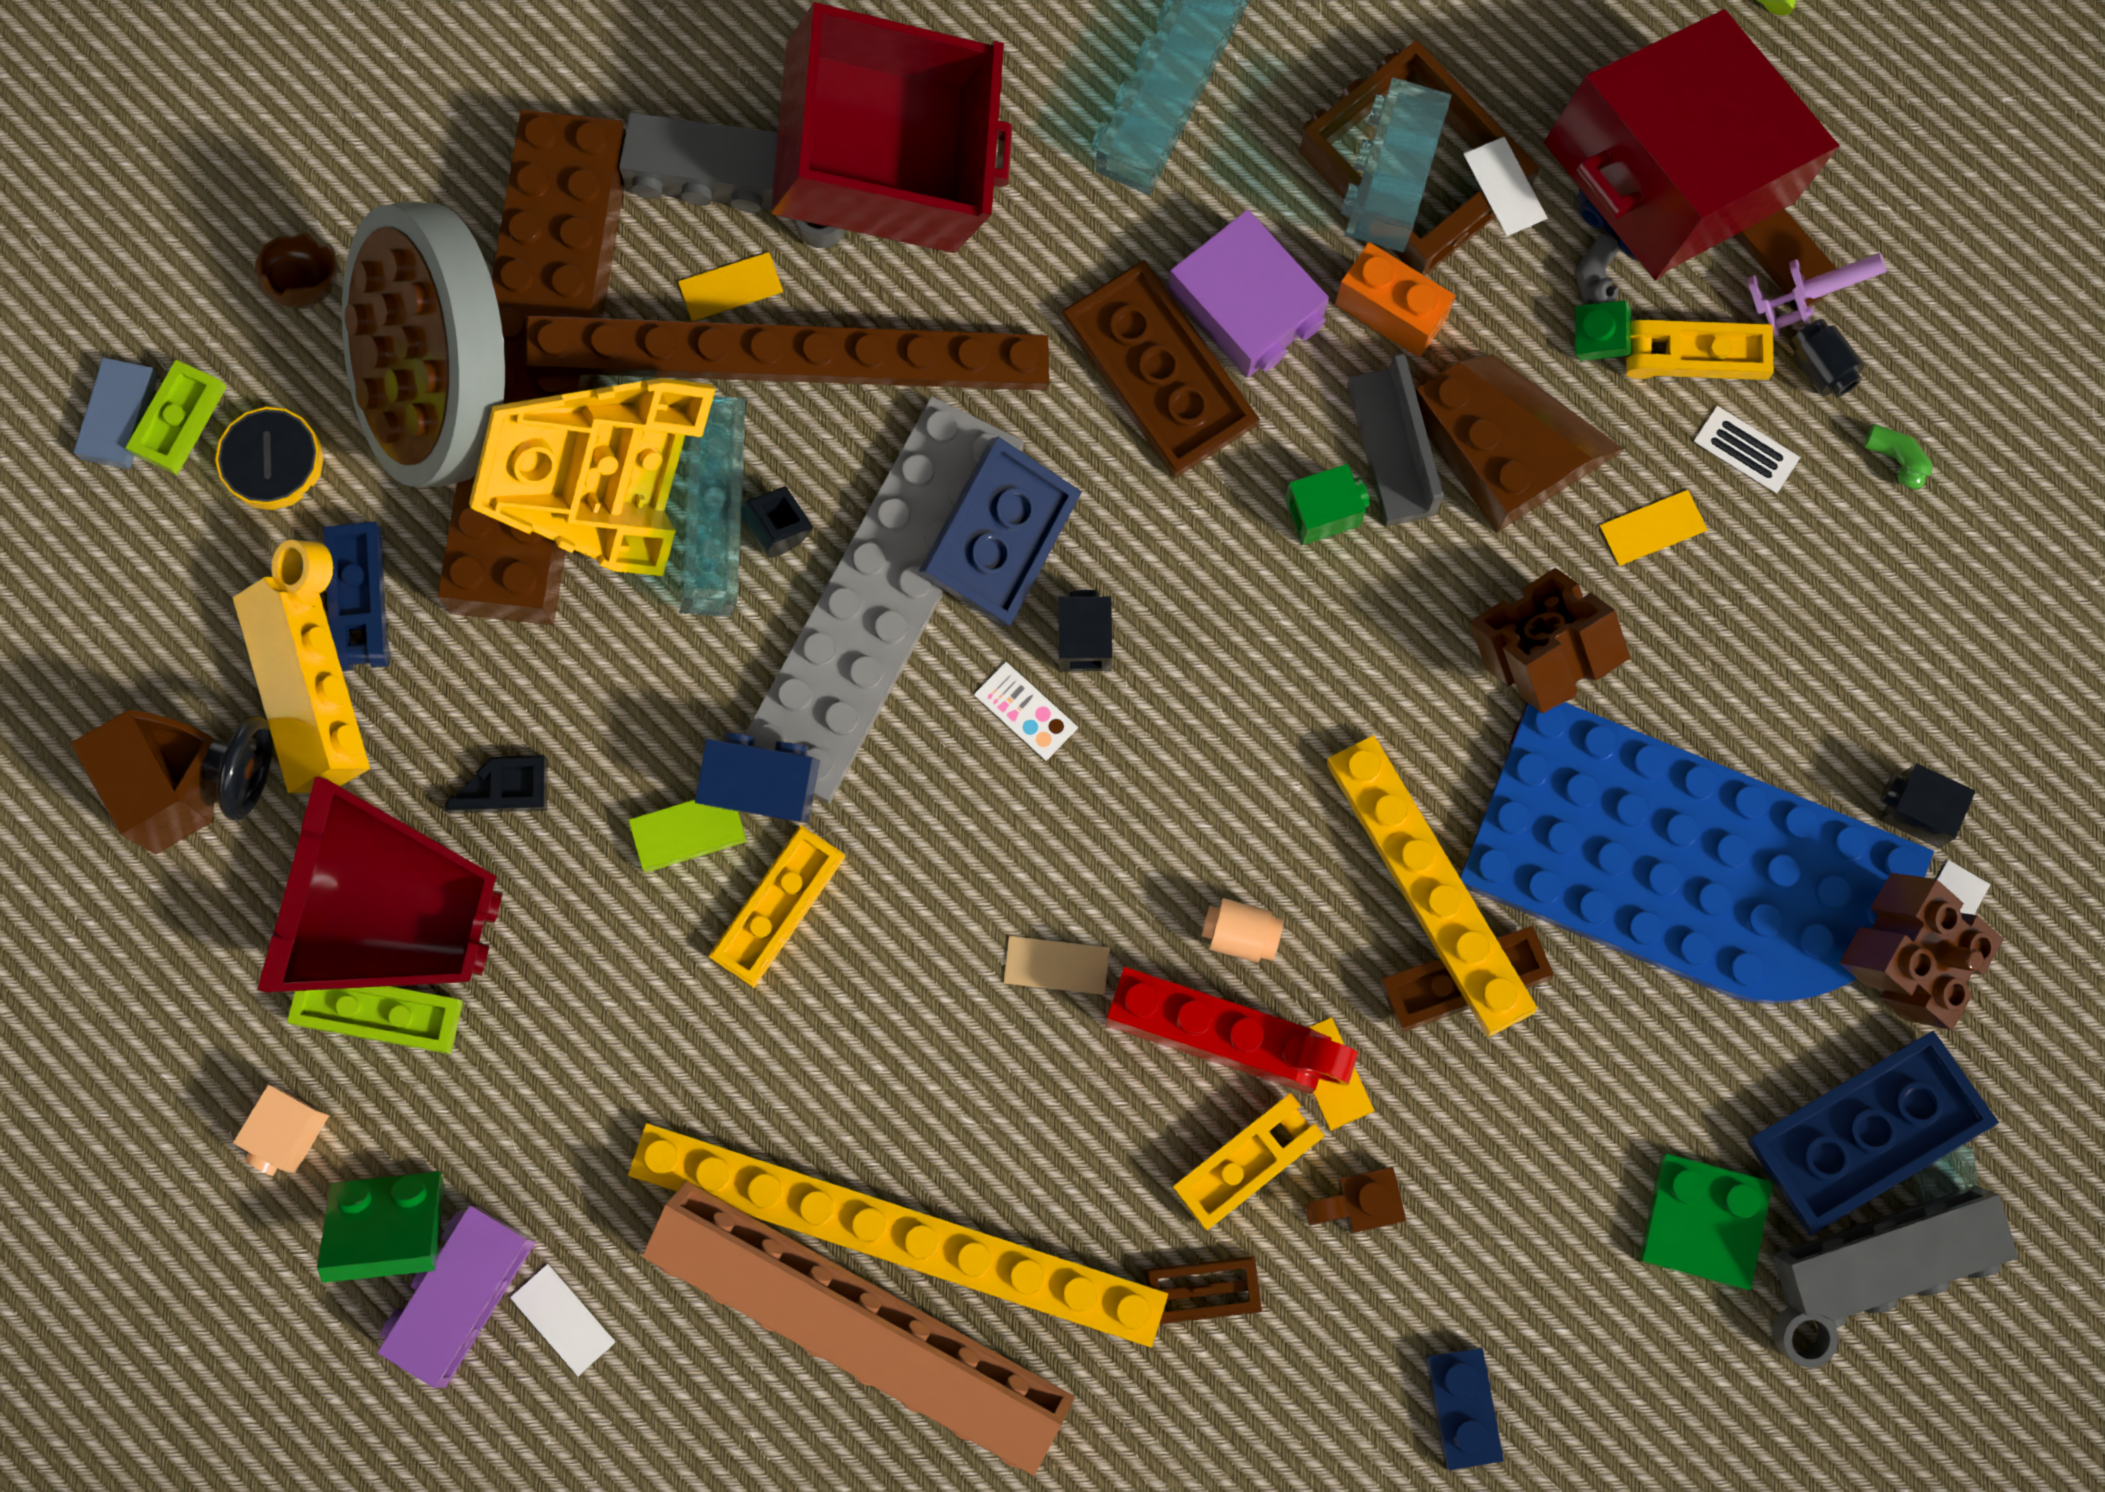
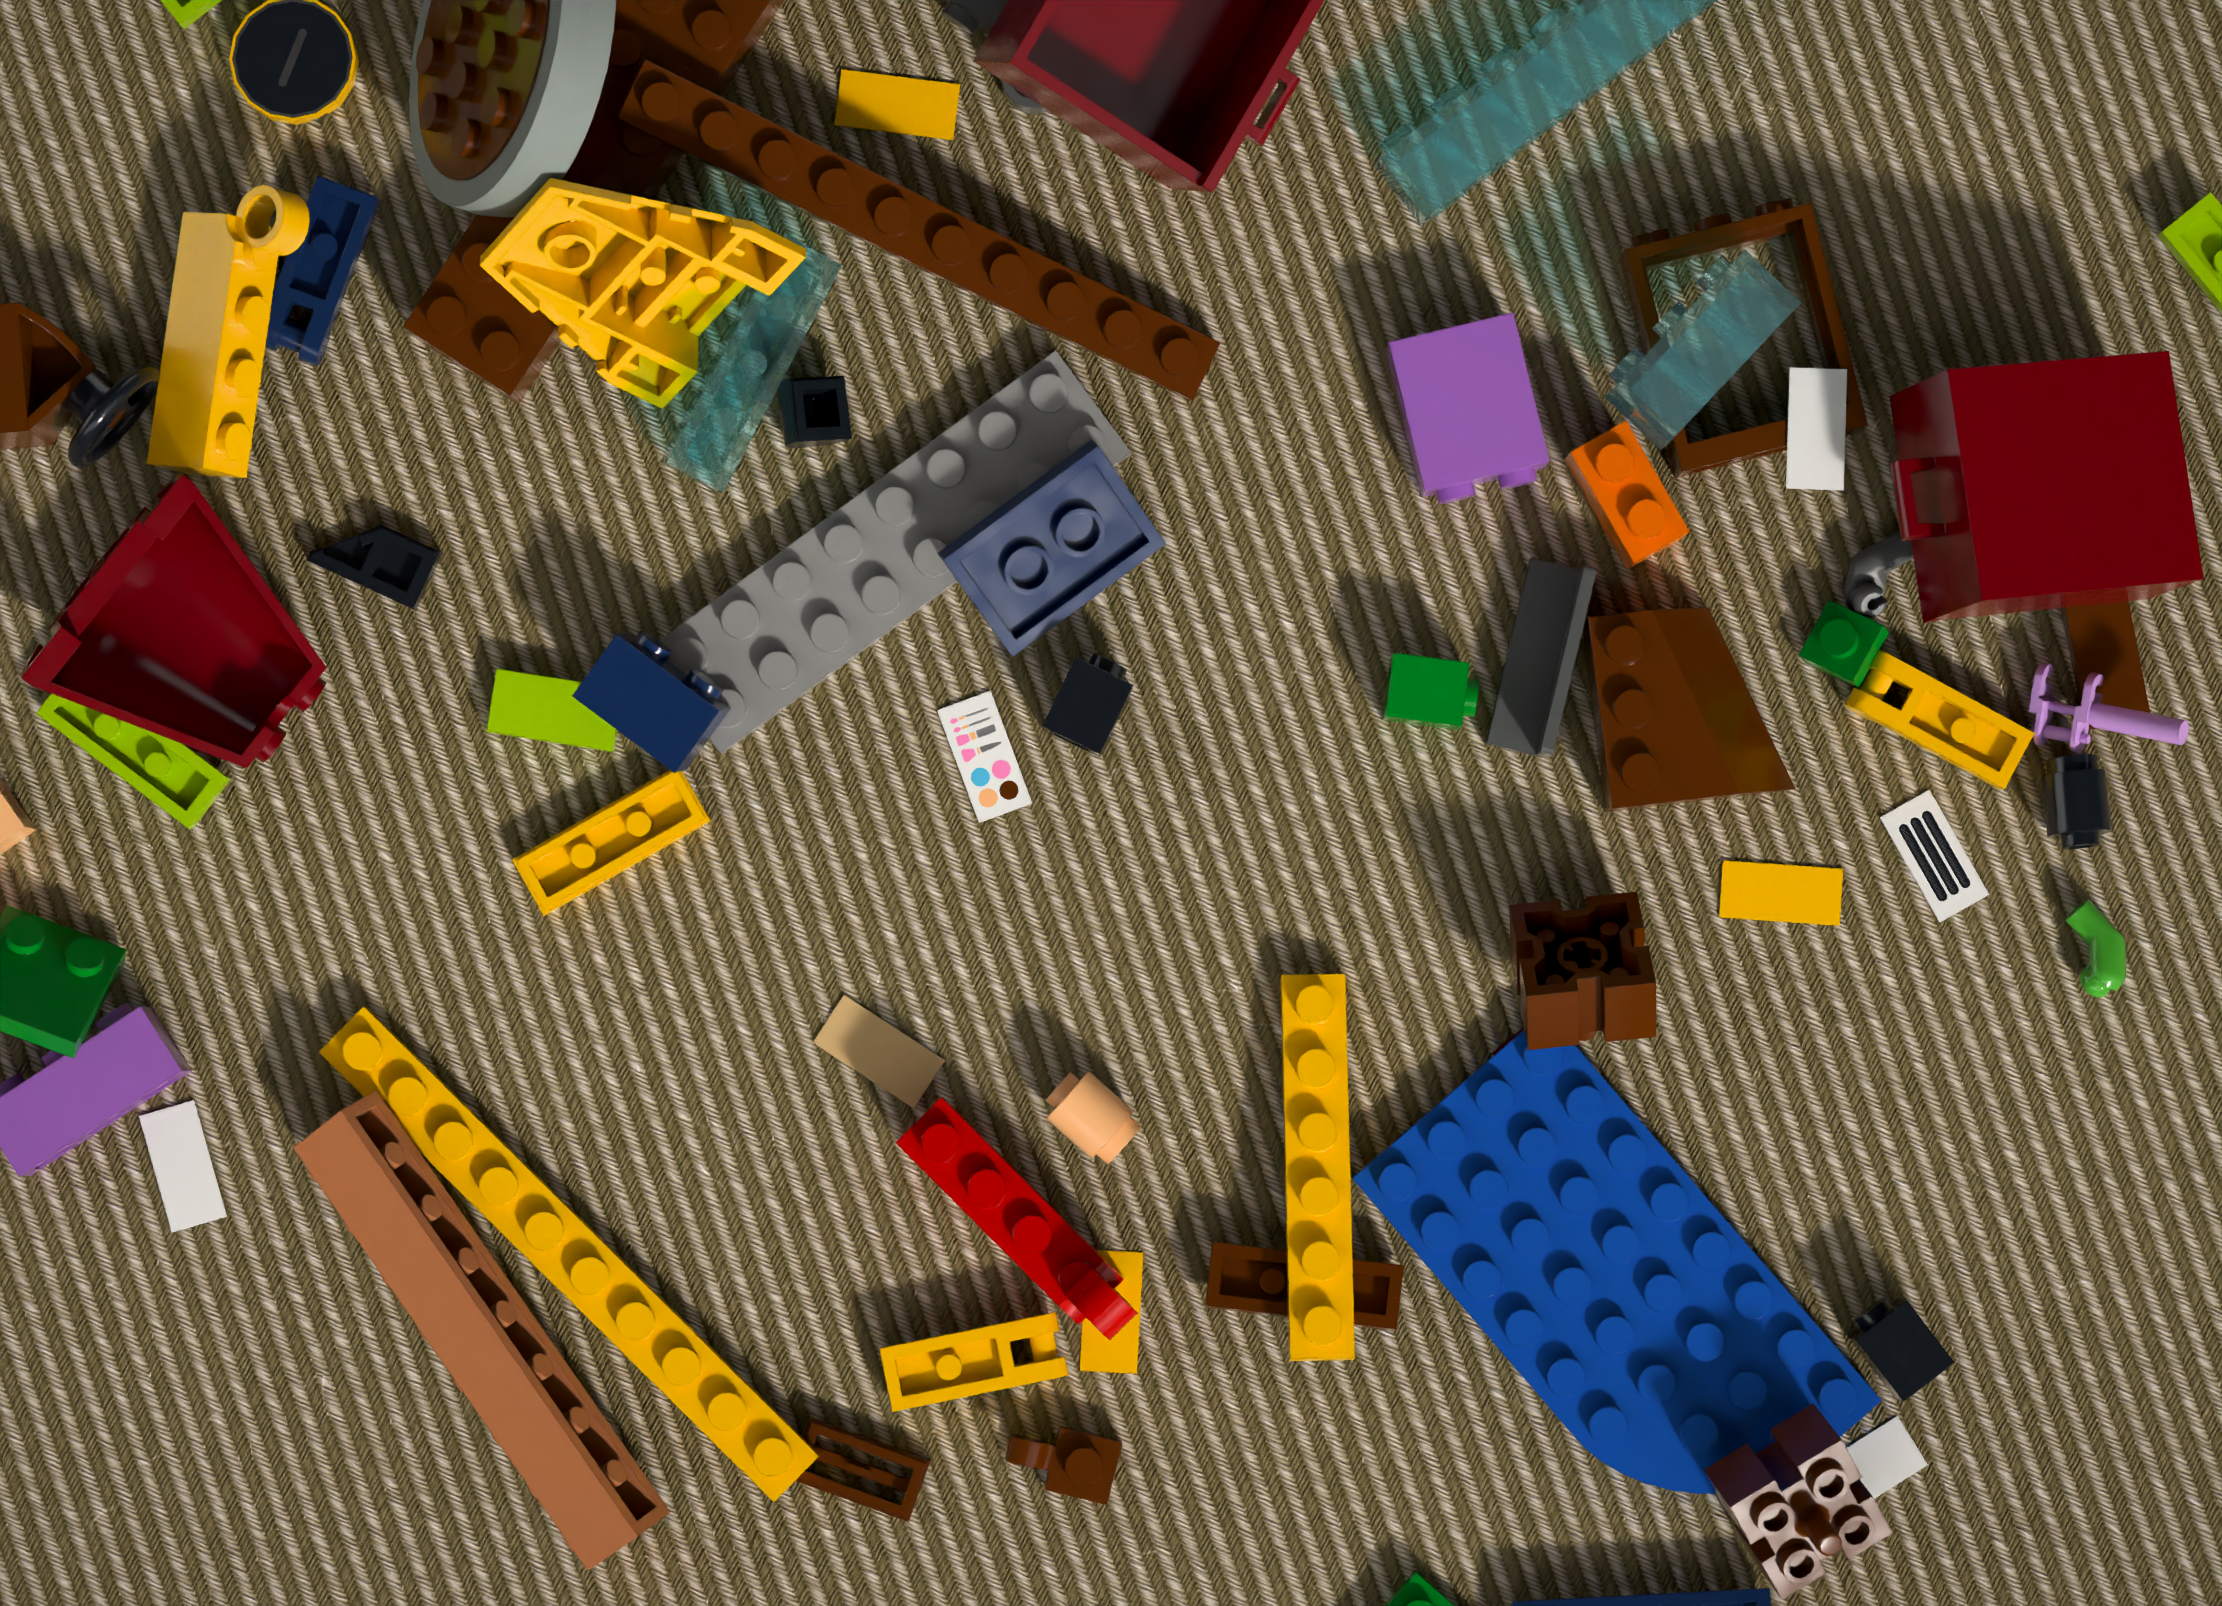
camera: 25 degrees right, 10 degrees up
(1159, 368) = (1327, 439): reddish brown tile -> none

